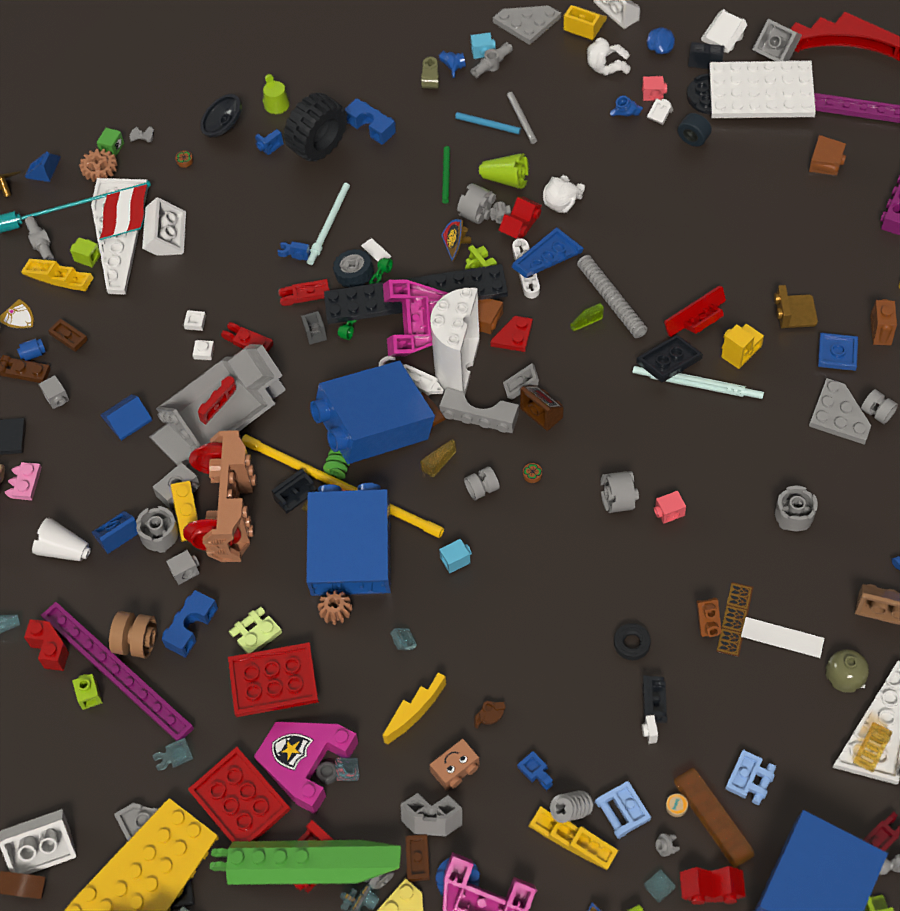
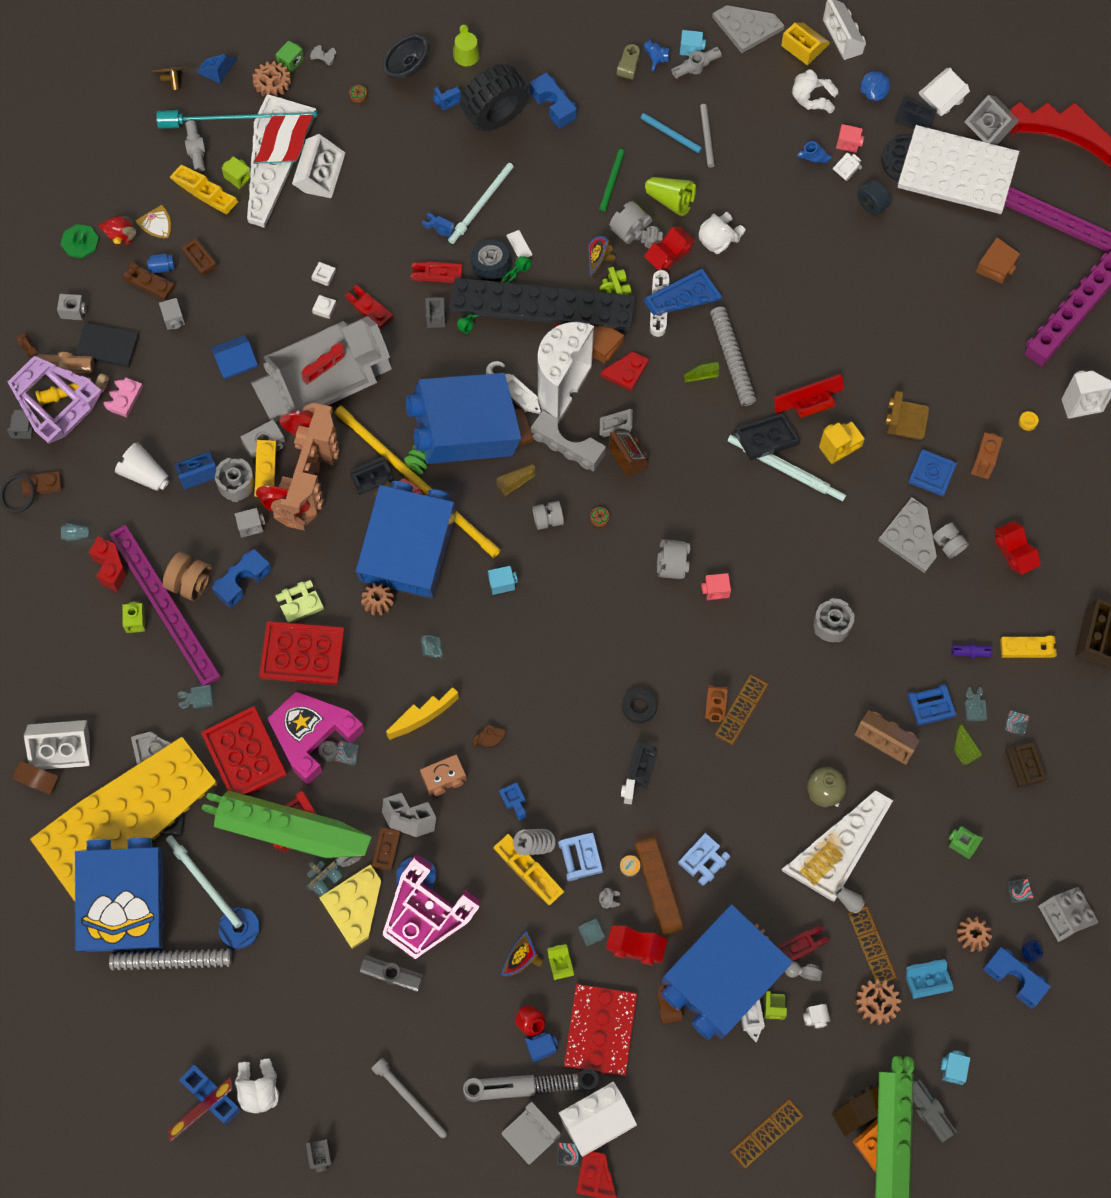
camera: 10 degrees right, 10 degrees up
(417, 309) = (539, 319): dark pink wedge -> none
(782, 637) = (779, 739): white sticker -> none

